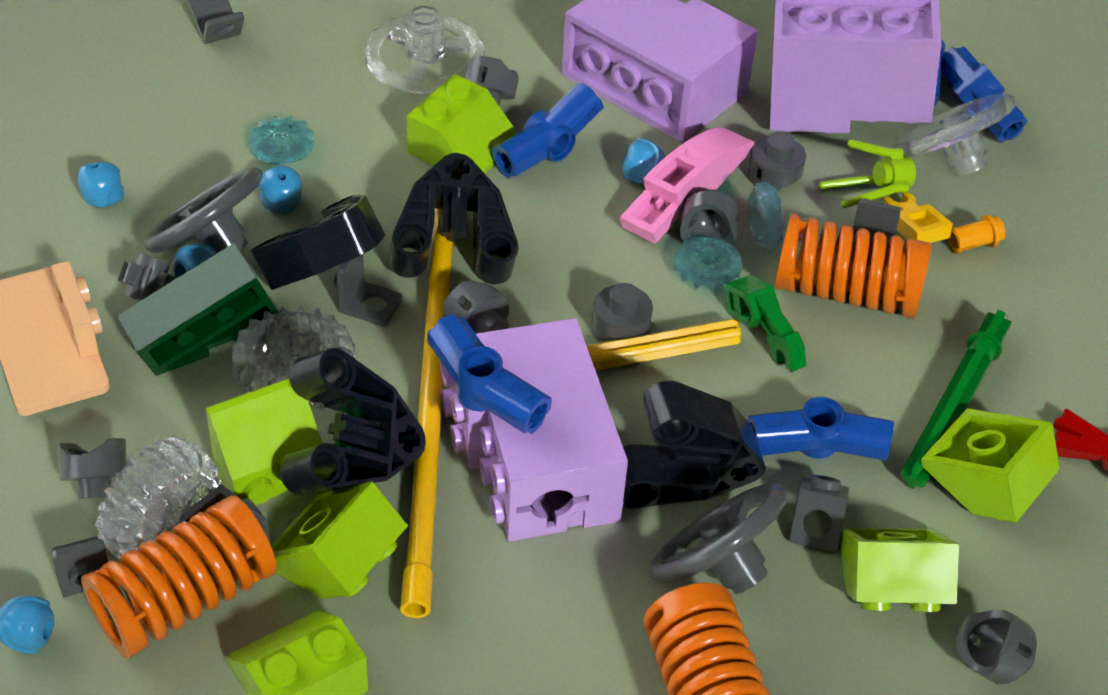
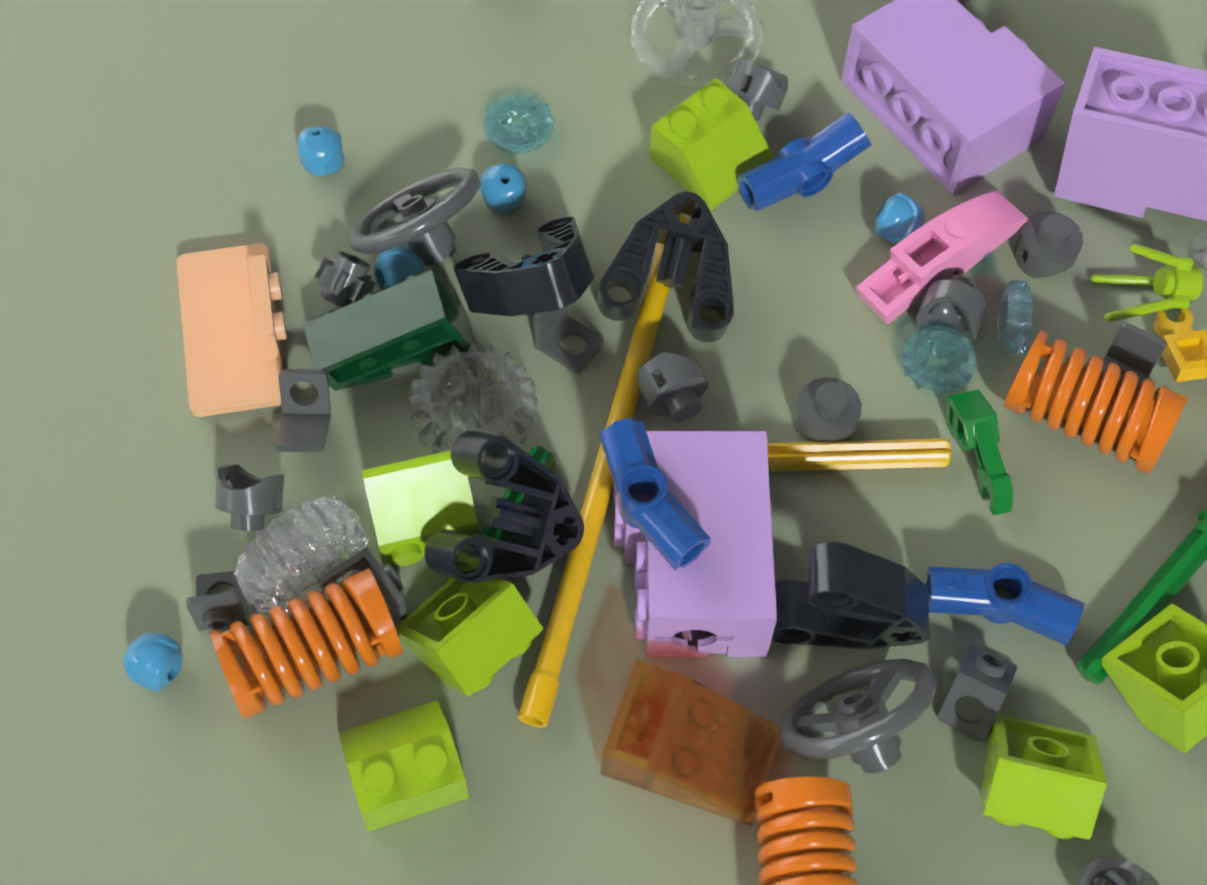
camera: 15 degrees right, 15 degrees up
(130, 402) = (303, 424): none -> dark grey bracket
(568, 596) = (689, 743): none -> clear orange slope

